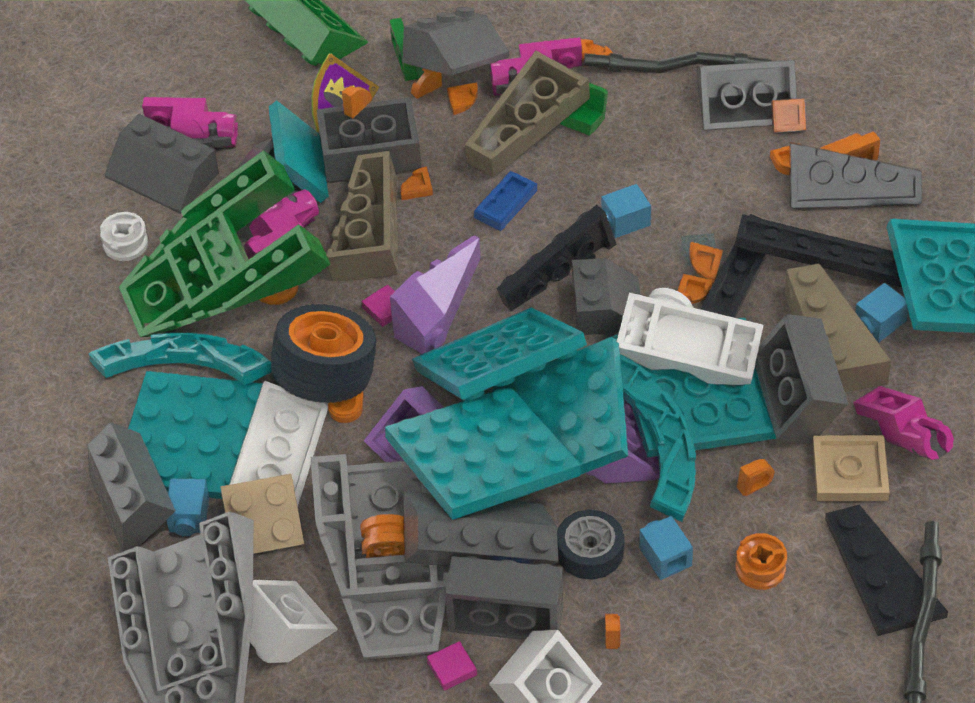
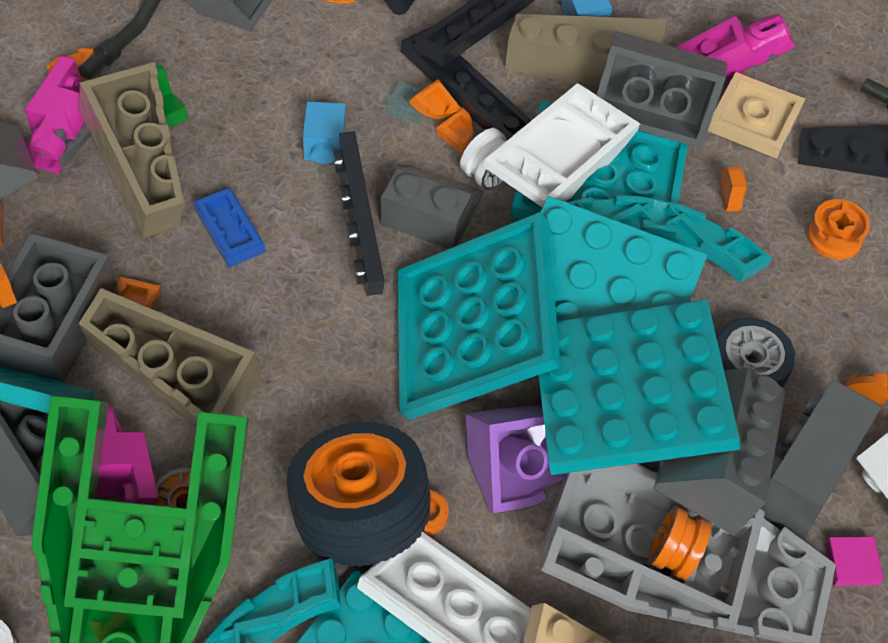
camera: 70 degrees left, 5 degrees up
(379, 305) = (299, 407): dark pink tile -> none
(428, 301) = (344, 354): medium lavender wedge -> none
(462, 97) = (39, 201): orange tile -> none
(665, 547) = (789, 295): dark azure brick -> none

